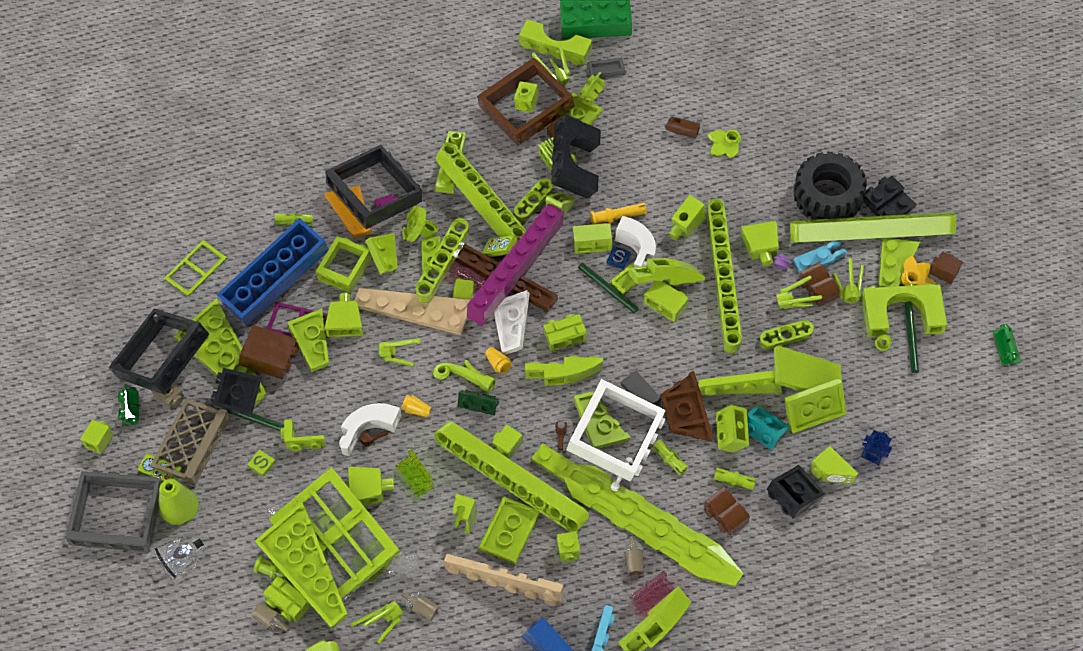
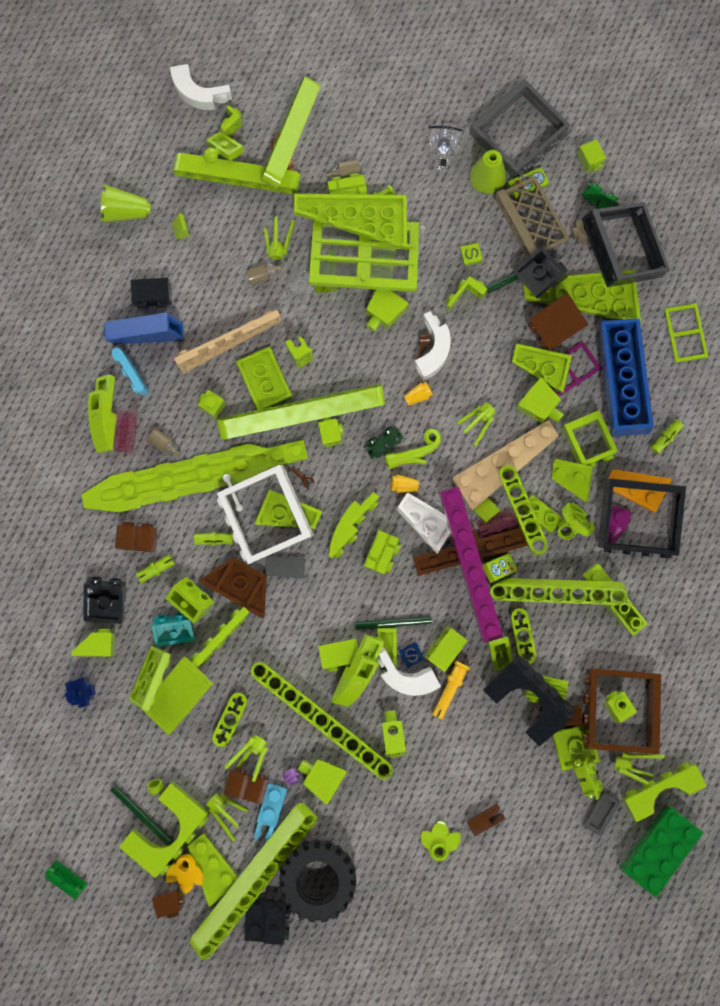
camera: 130 degrees right, 20 degrees up
(415, 474) = (365, 349): clear neon green panel -> none

